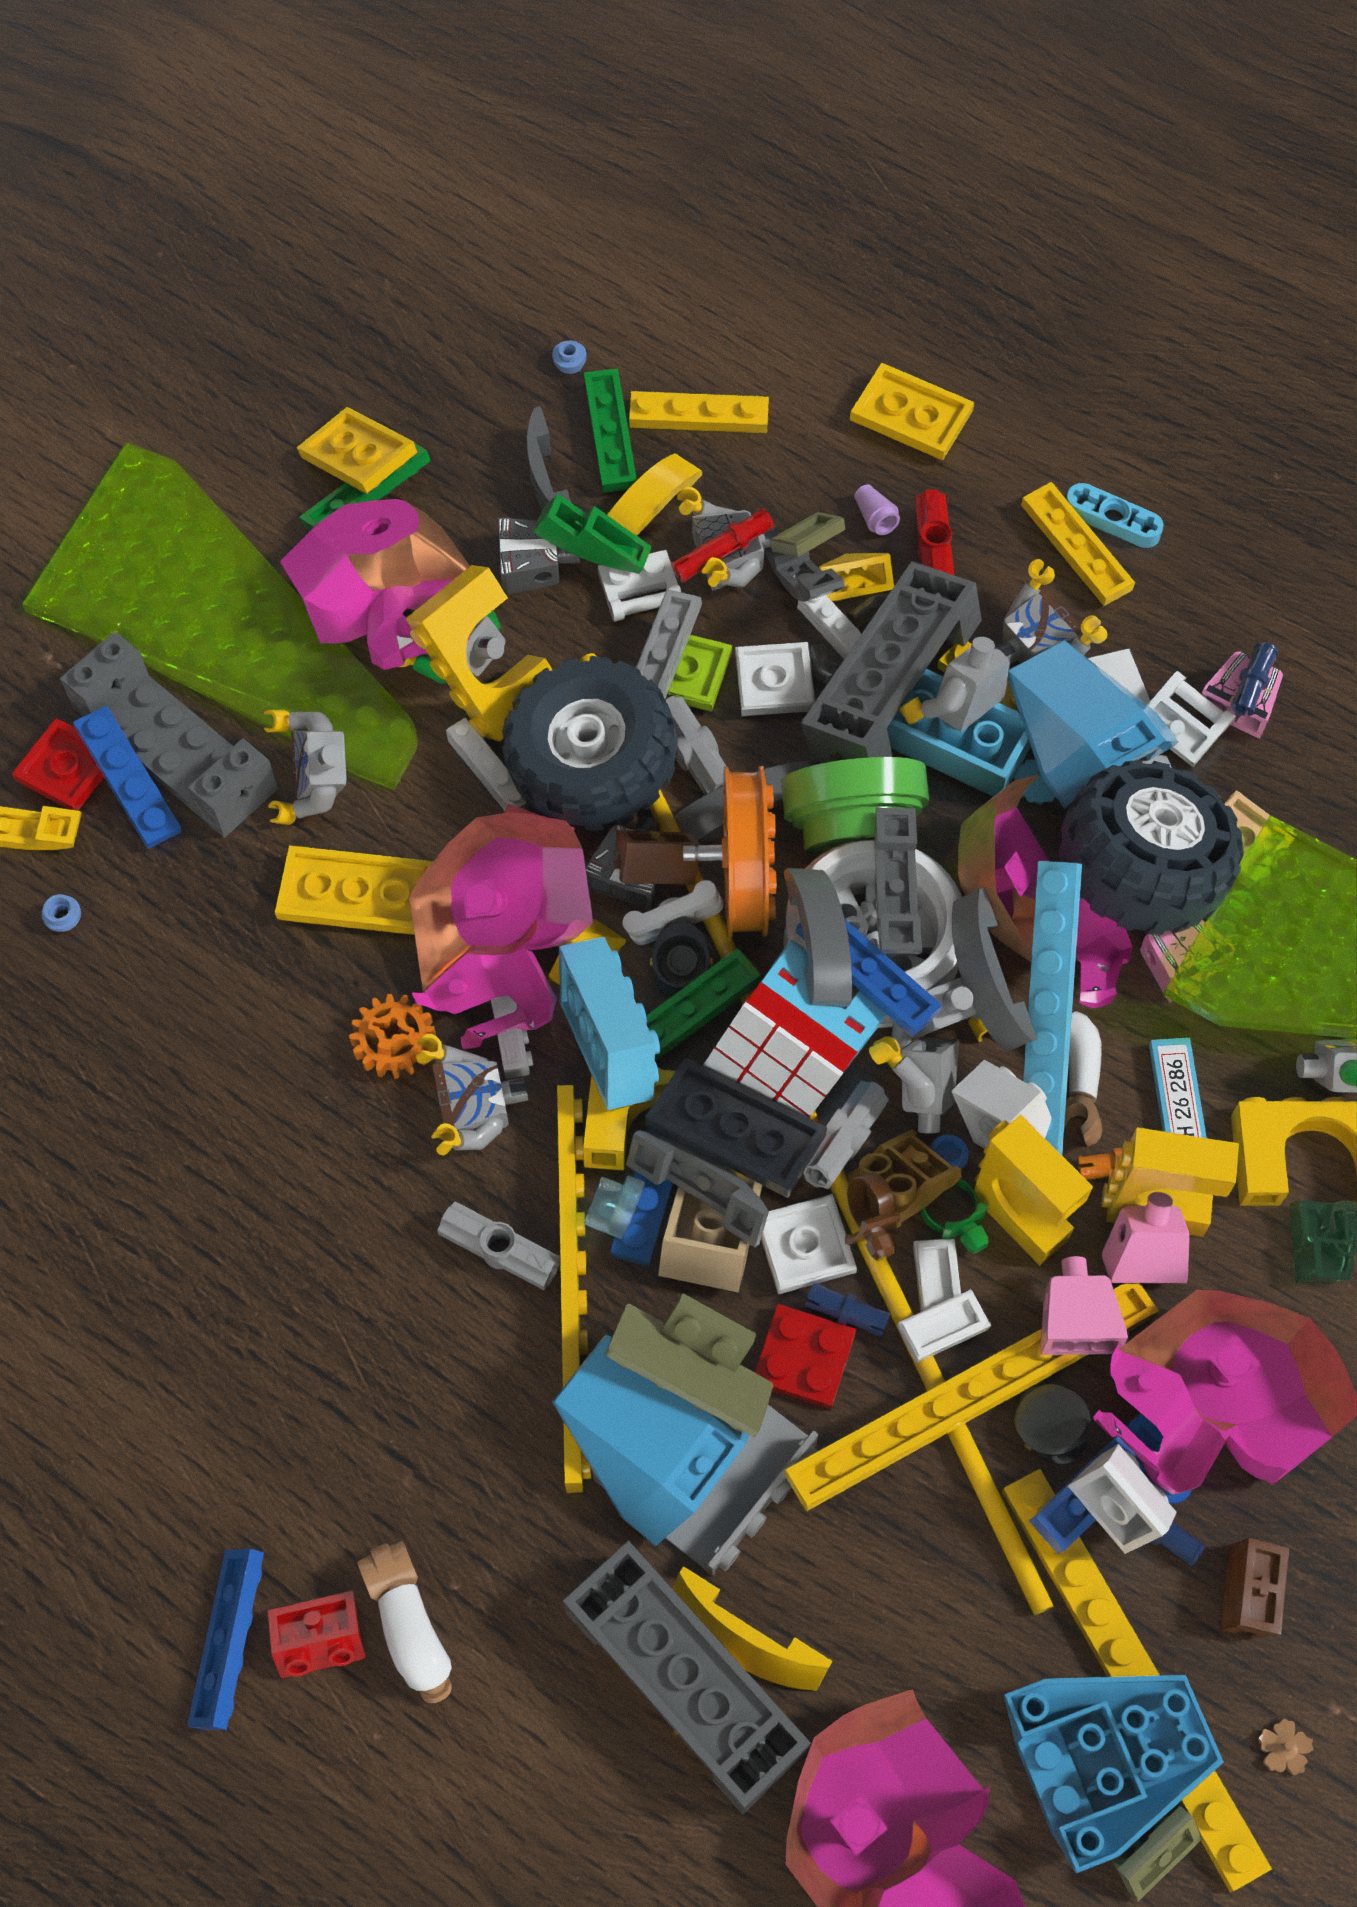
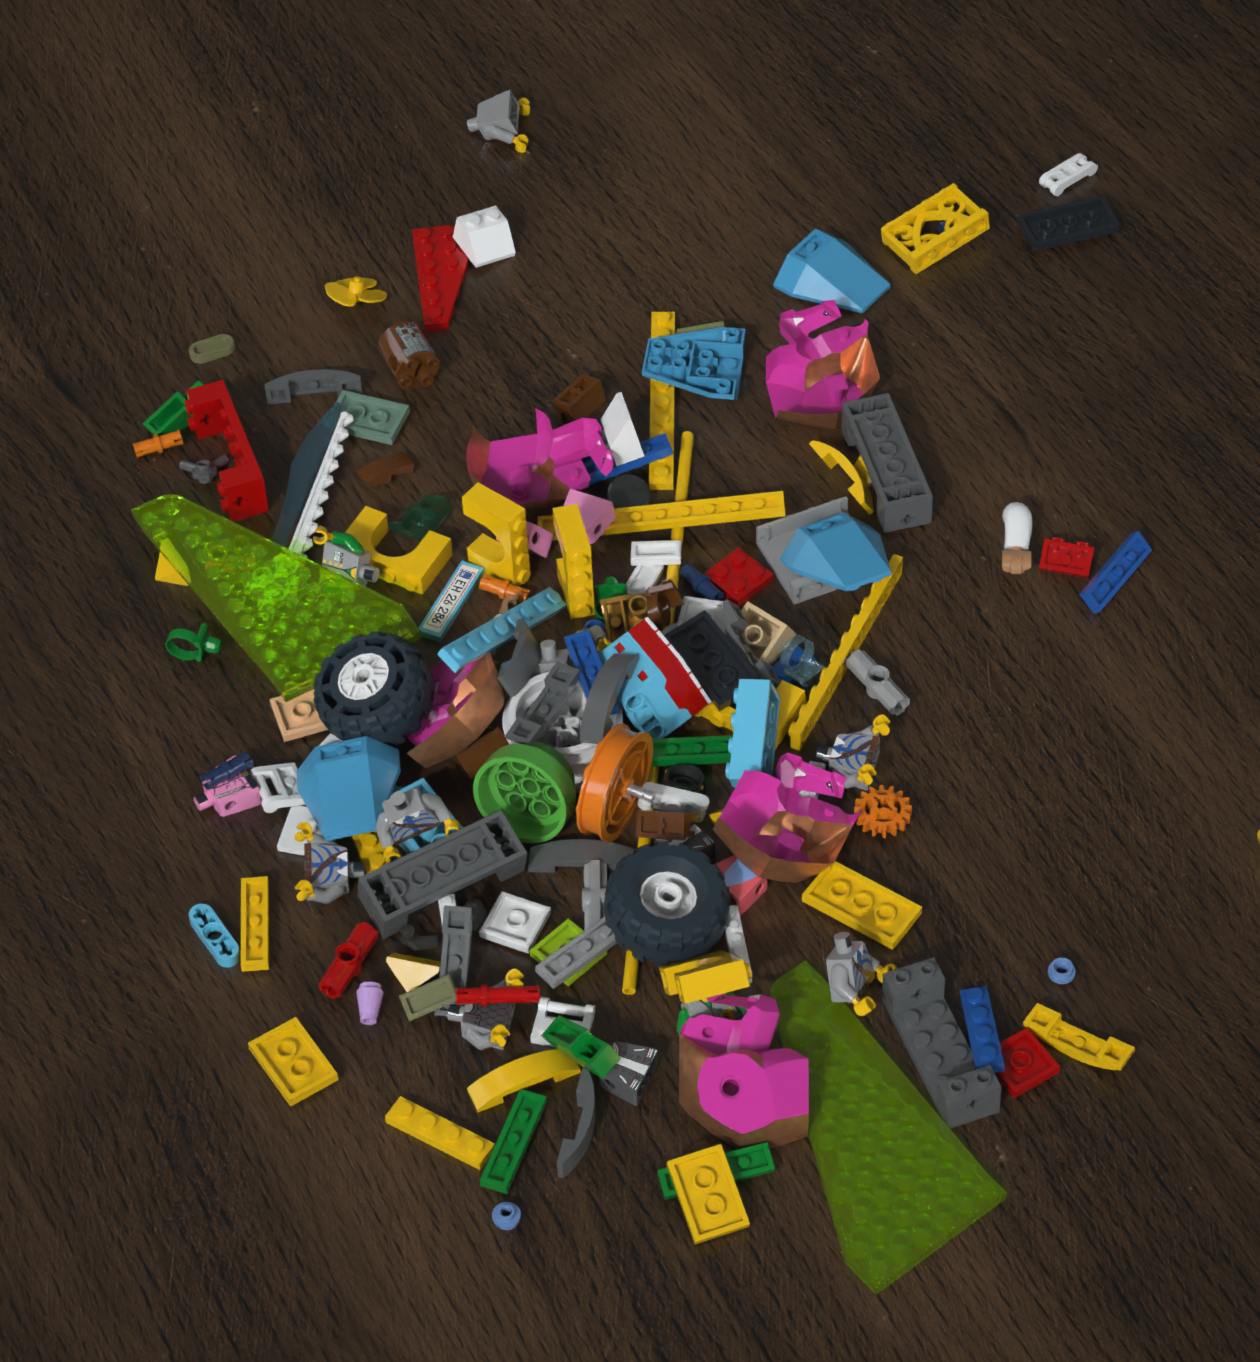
camera: 150 degrees left, 15 degrees down
(695, 1358) = (808, 562): olive bracket -> none
(997, 1095) = (557, 610): white slope -> none
(1285, 1748) = (610, 350): medium nougat plant -> none

